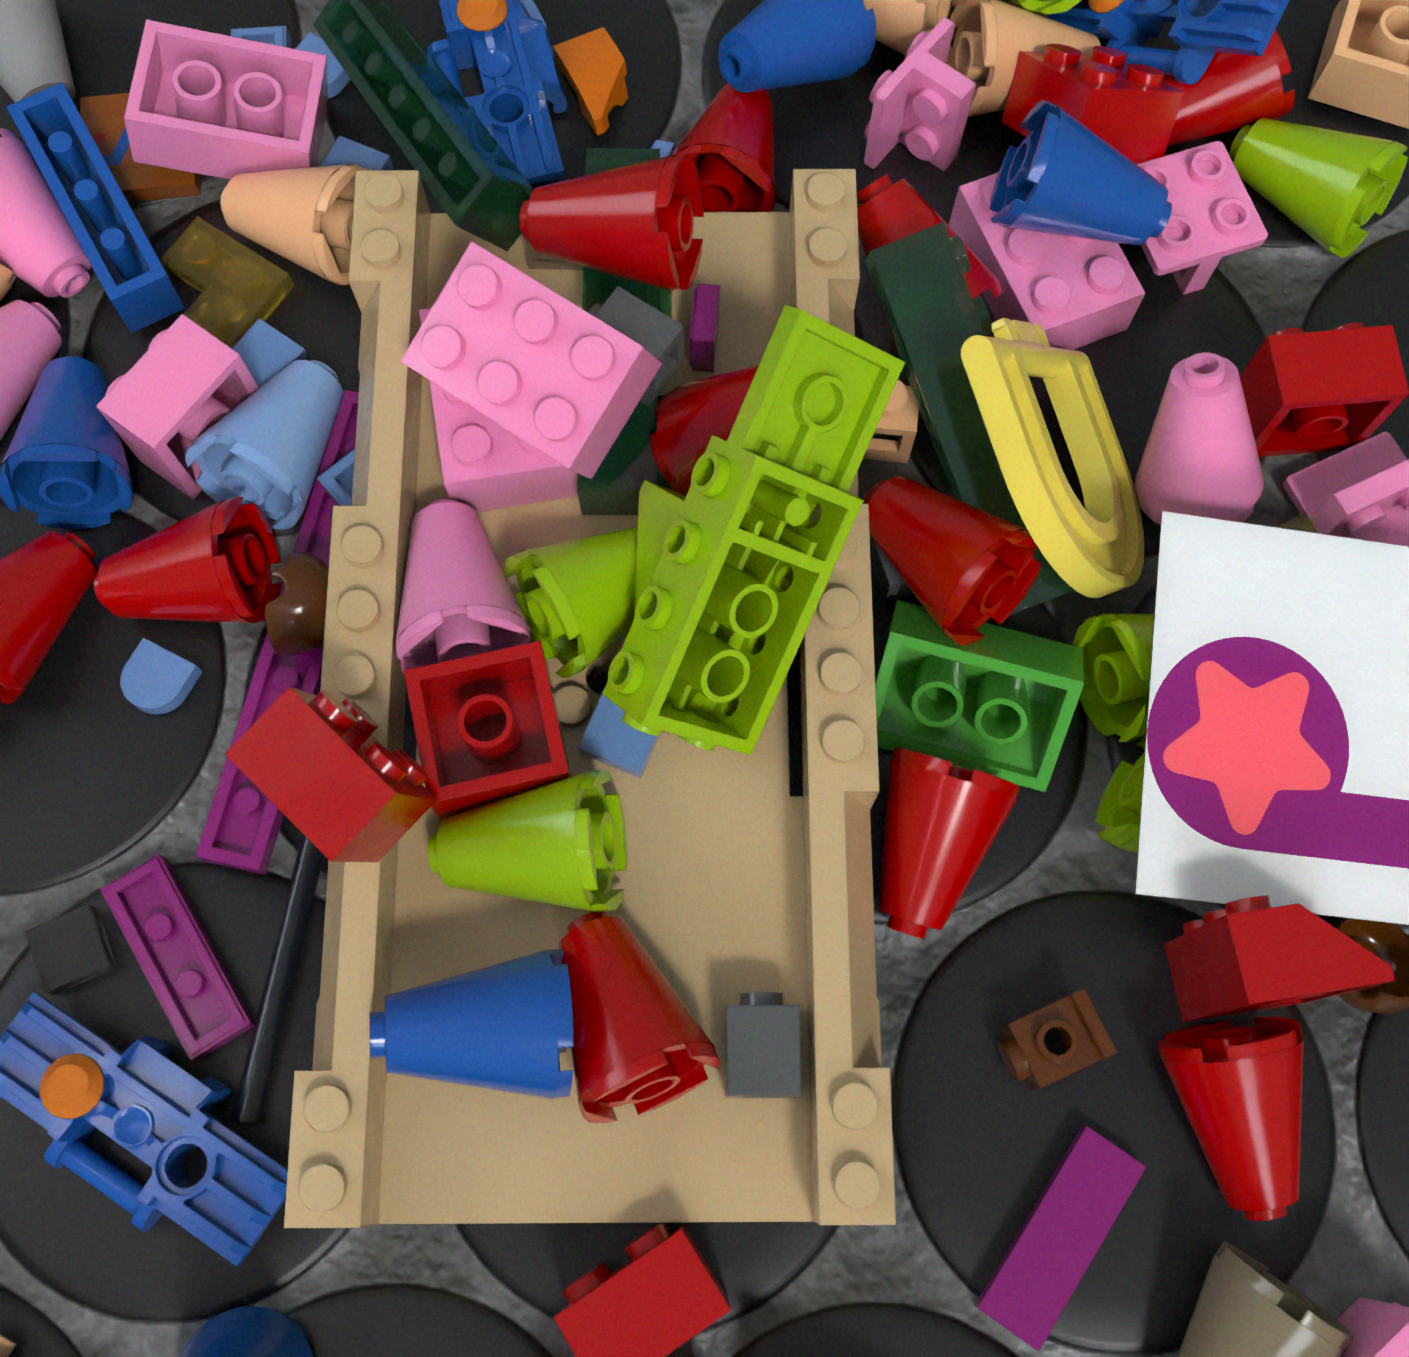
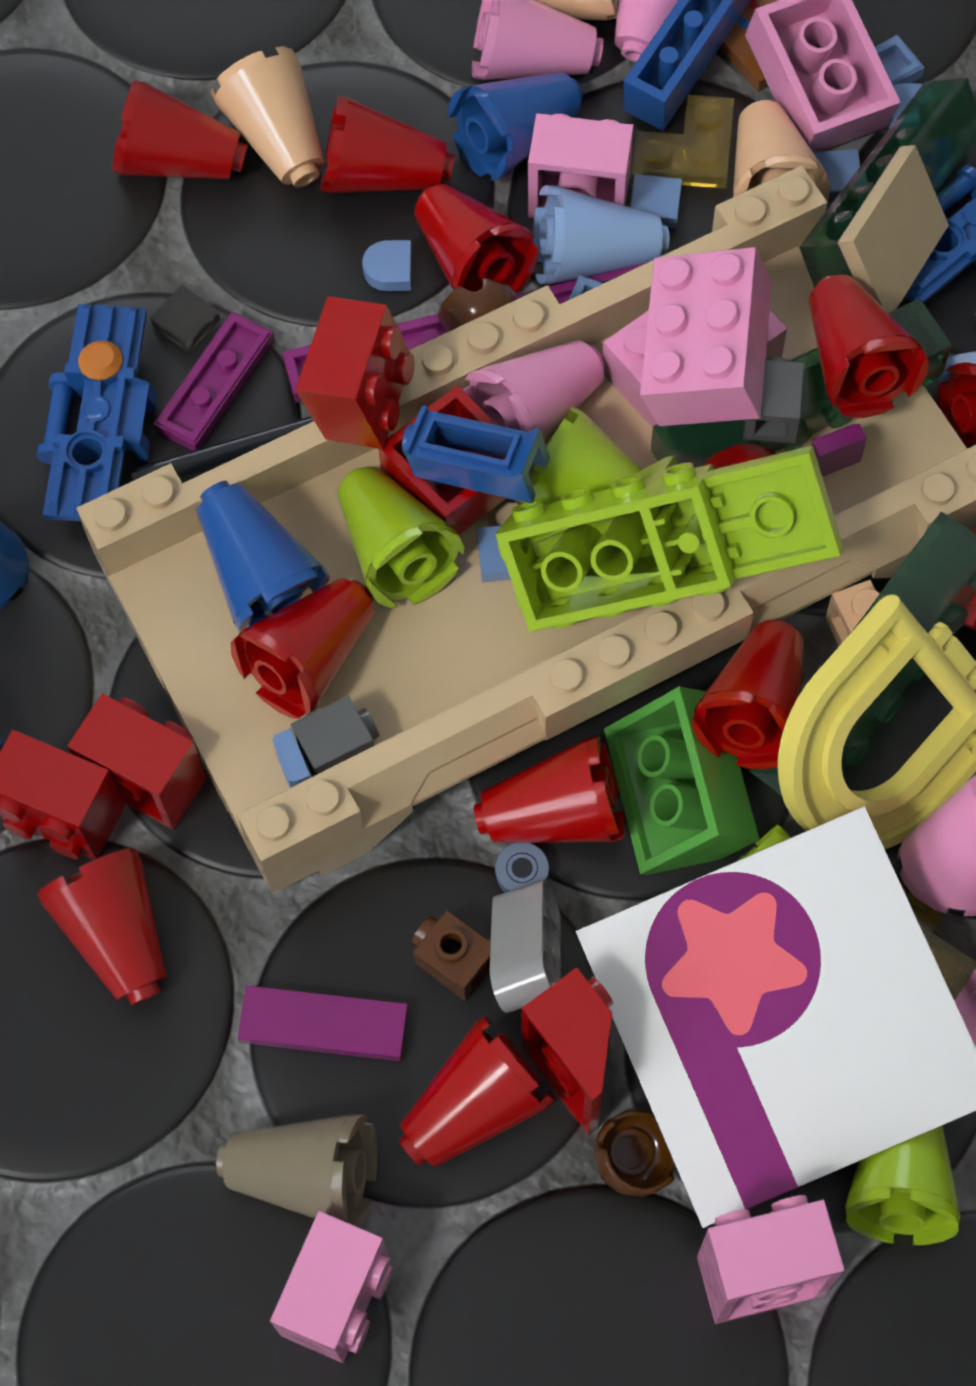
camera: 65 degrees right, 5 degrees down
(485, 124) = (894, 230): none -> tan tile
(540, 713) = (473, 471): none -> blue window
(768, 1116) = (290, 758): none -> medium blue tile
(984, 916) = (521, 866): none -> sand blue tile
(1107, 959) = (524, 944): none -> light grey beam

